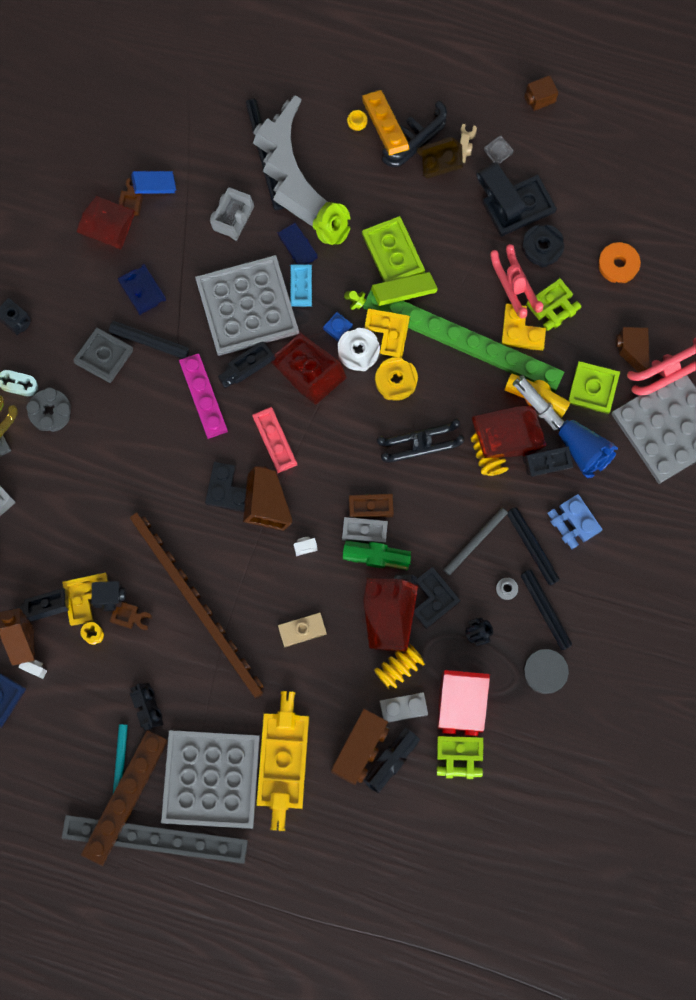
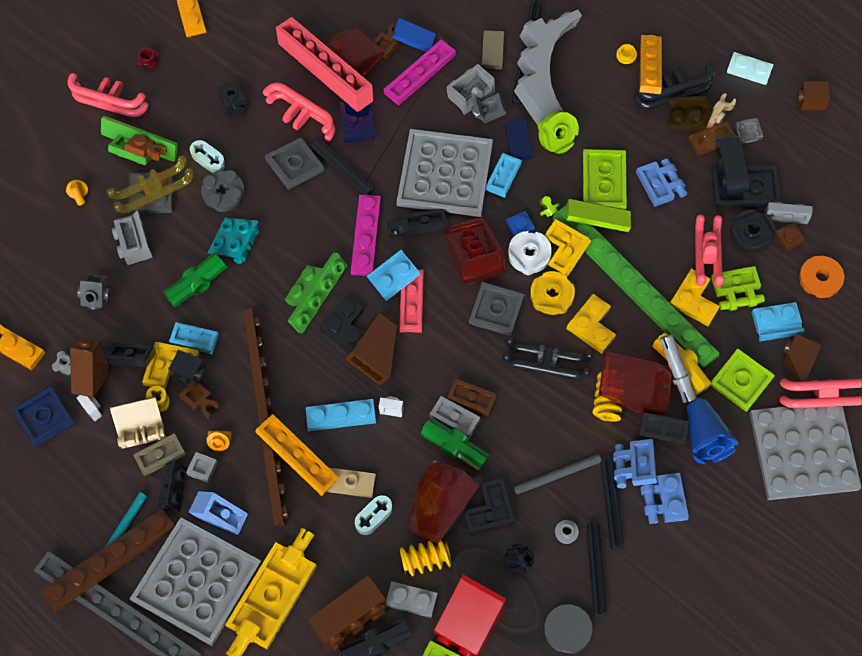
camera: 30 degrees right, 10 degrees down
(69, 507) = (195, 280): none -> green piece
(82, 294) = (298, 104): none -> coral piece
(84, 452) = (235, 238): none -> teal hinge
(85, 246) = (325, 64): none -> coral brick
(87, 664) = (138, 422): none -> hinge
(95, 562) = (194, 338): none -> medium azure plate
(119, 683) = (159, 454): none -> dark tan plate
(164, 676) = (202, 467): none -> light grey plate
(166, 645) = (219, 440): none -> light orange plate
(176, 216) = (419, 72): none -> dark pink plate
(180, 470) = (312, 290): none -> bright green bracket
(199, 710) = (218, 512): none -> light blue slope
(232, 165) = (492, 49): none -> dark tan tile
(246, 628) = (297, 455): none -> light orange plate
(248, 424) = (393, 275): none -> medium azure plate
(258, 225) = (489, 108): none -> dark grey bracket
(263, 573) = (340, 415): none -> medium azure plate
(331, 647) = (370, 511): none -> light aqua beam
(354, 415) = (496, 309): none -> dark grey plate
(439, 236) = (657, 186): none -> medium blue plate
(439, 396) = (587, 324): none -> yellow plate
(466, 176) = (705, 140): none -> clear orange plate
(473, 88) = (750, 68): none -> light aqua plate
(544, 499) = (642, 463): none -> medium blue plate
(565, 216) = (789, 213): none -> light grey plate
(576, 237) = (789, 237): none -> reddish brown plate
(599, 320) = (777, 321): none -> medium azure plate

